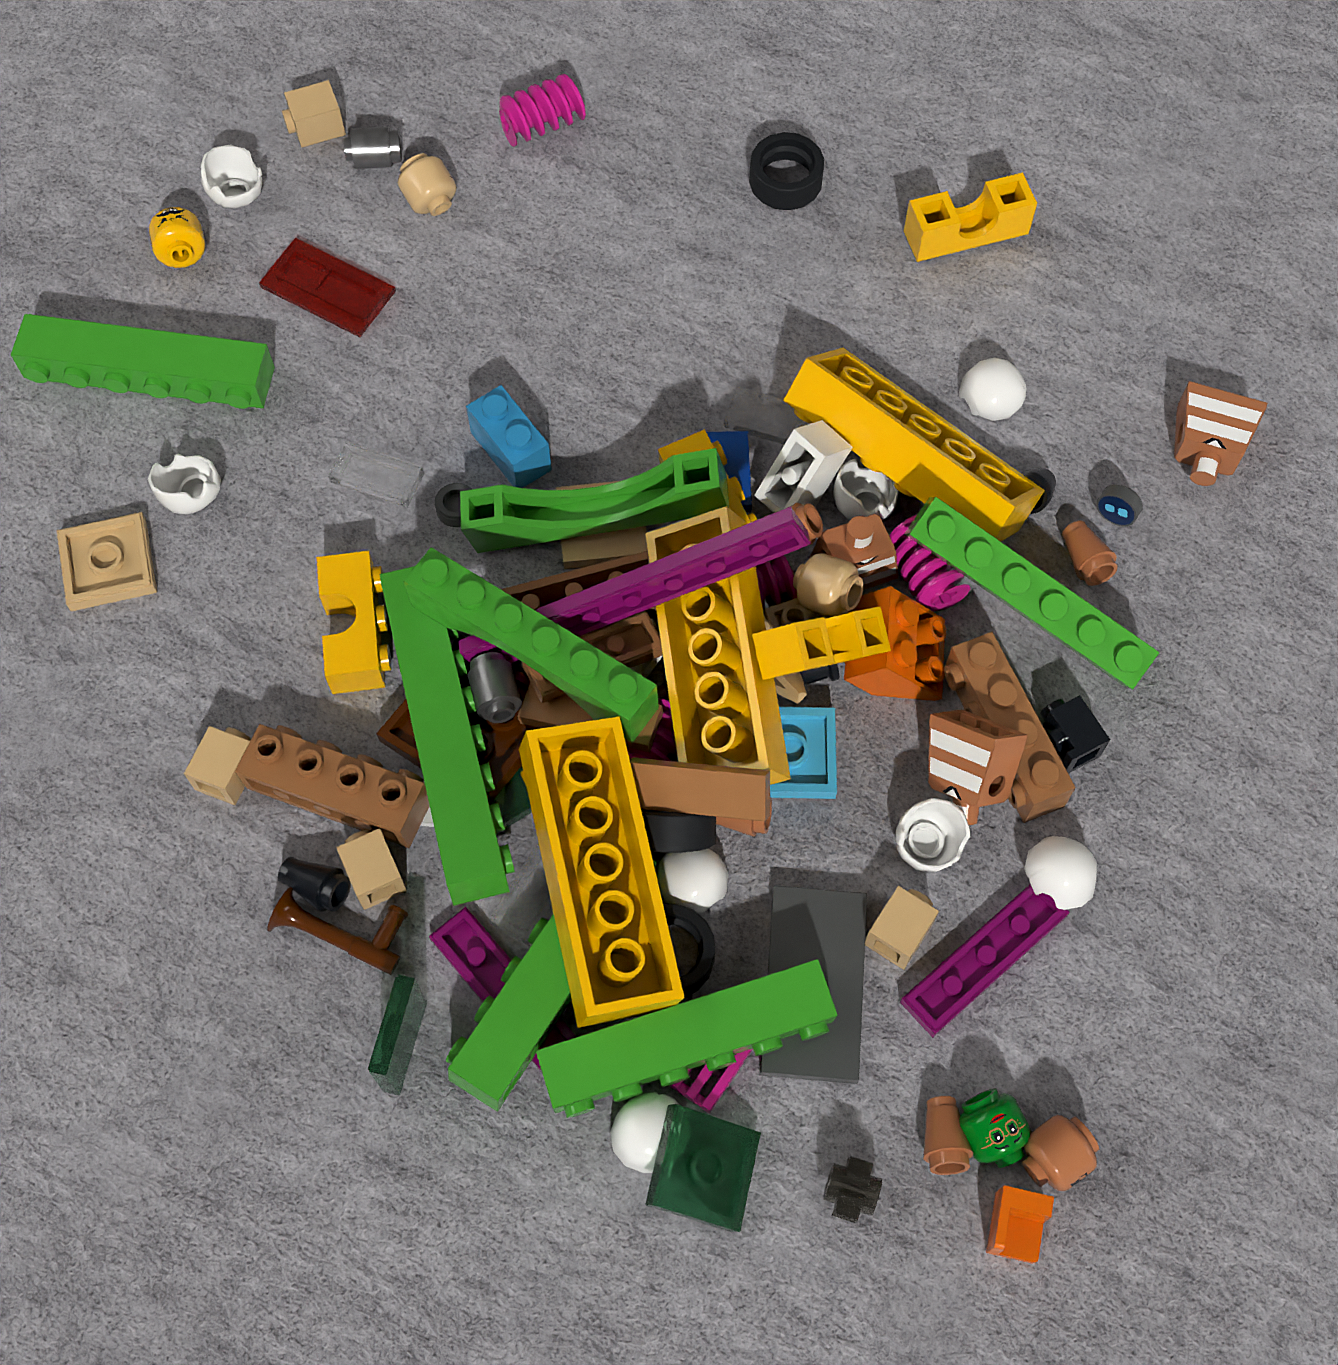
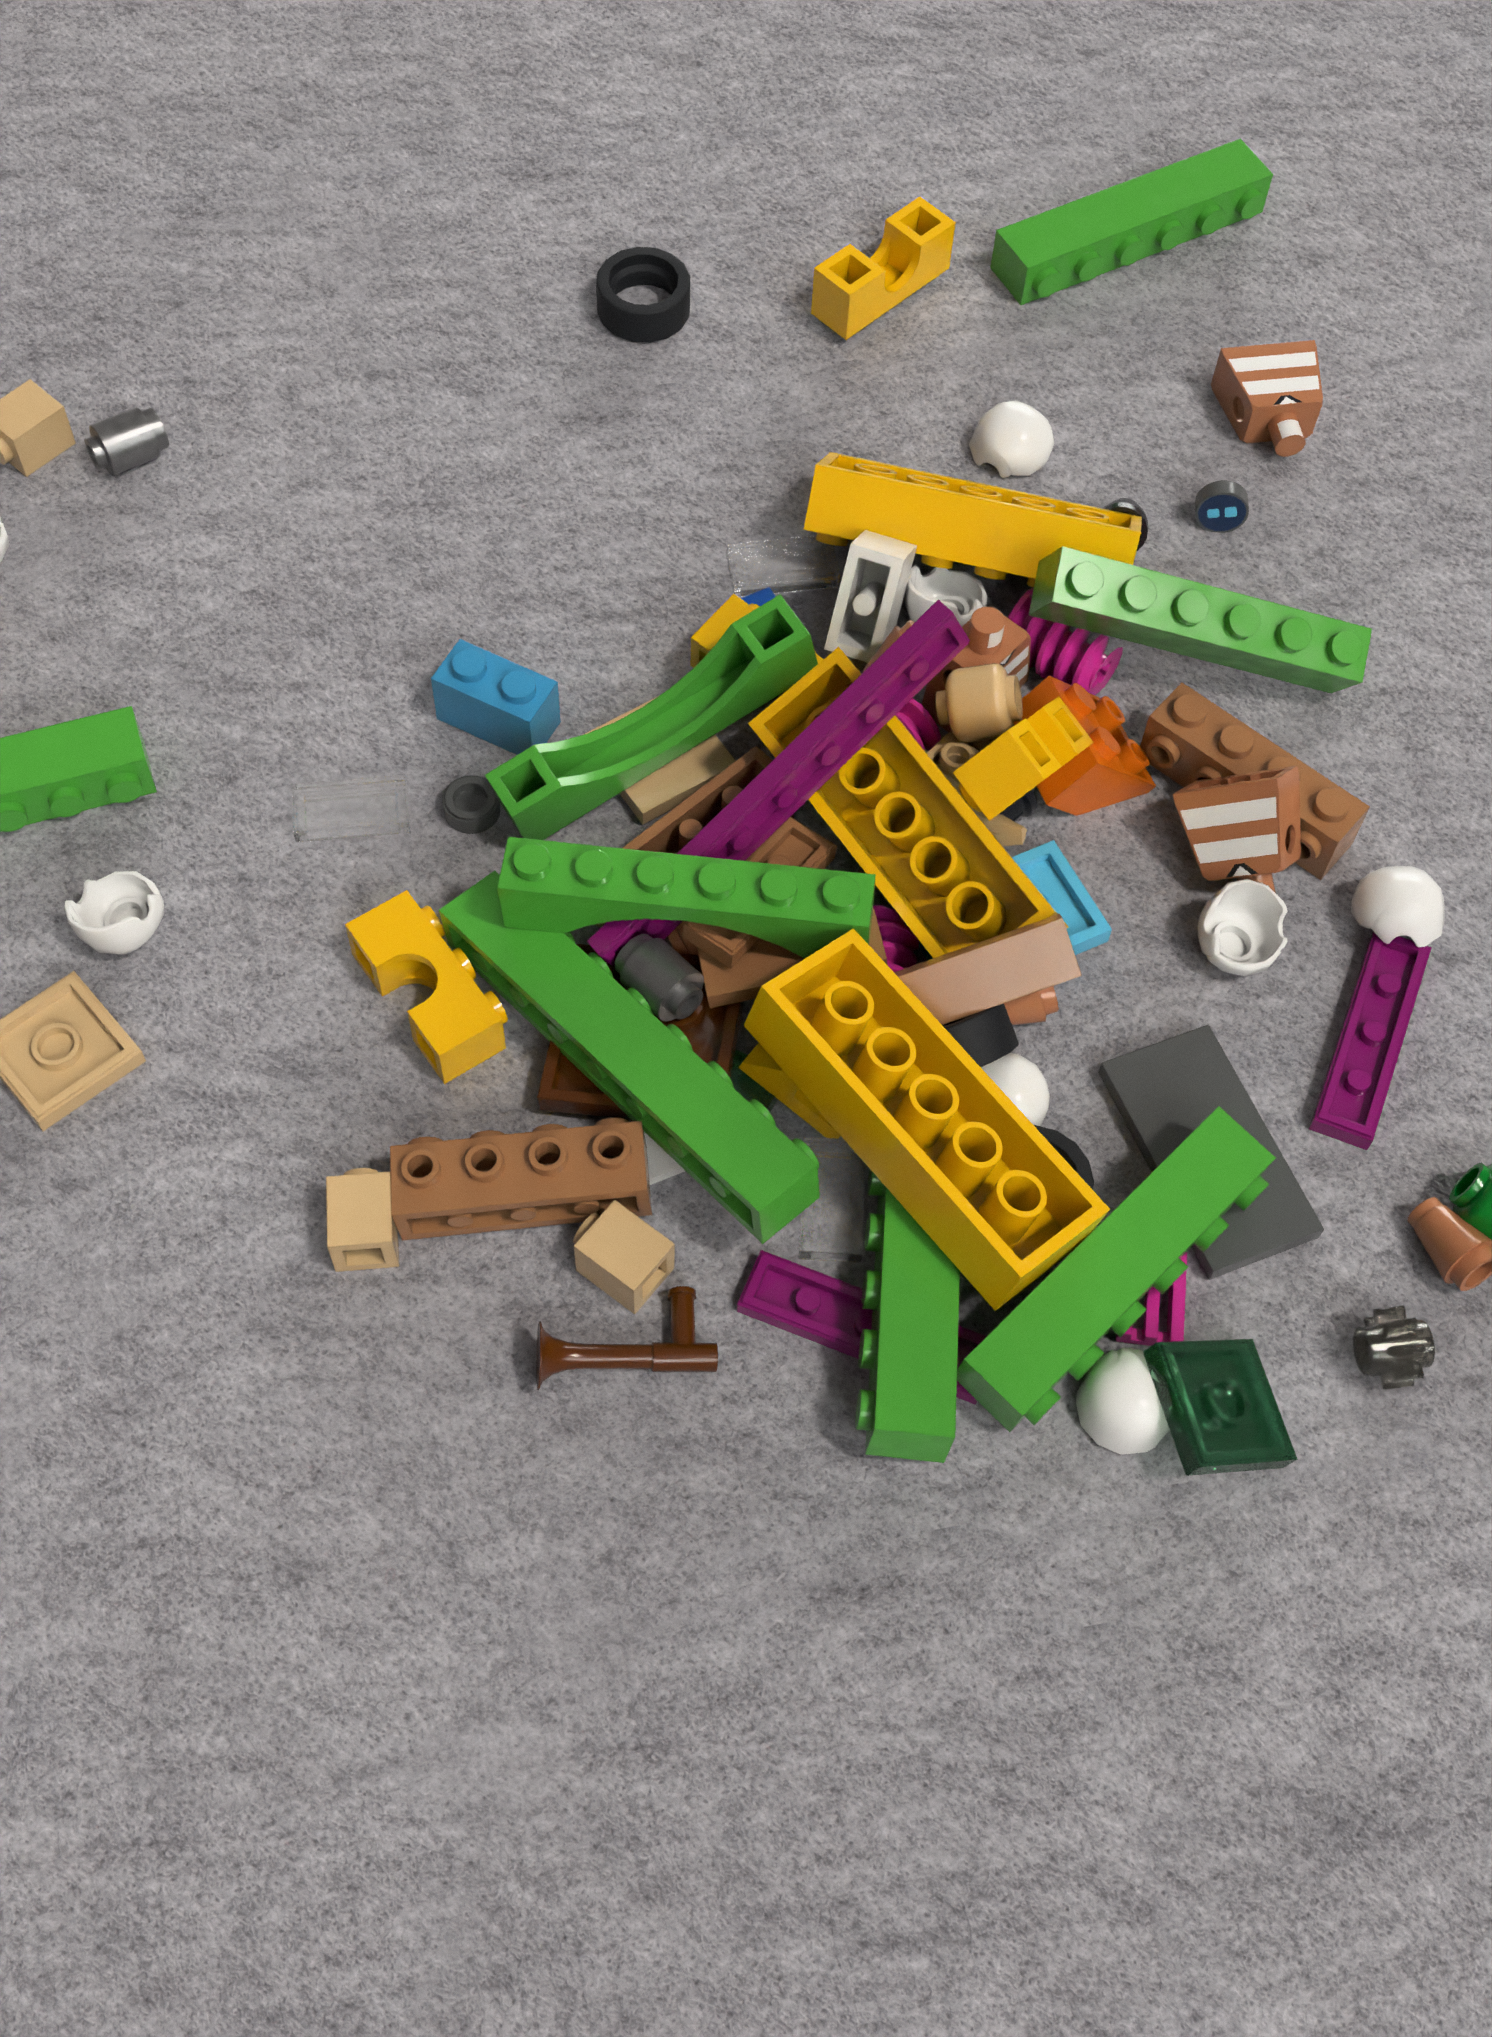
camera: 30 degrees left, 5 degrees down
(318, 884) = (563, 1306): black cone -> none
(327, 287) = (157, 622): clear red piece -> none
(397, 1035) = (783, 1426): clear green tile -> none
(426, 184) = (221, 457): tan head -> none
(540, 106) = (313, 325): dark pink piece -> none
(902, 926) = (1270, 1042): tan brick -> none
(1074, 732) = (1326, 749): black brick -> none
(1089, 554) = (1220, 566): nougat cone -> none
(1190, 249) = (1130, 221): none -> bright green brick

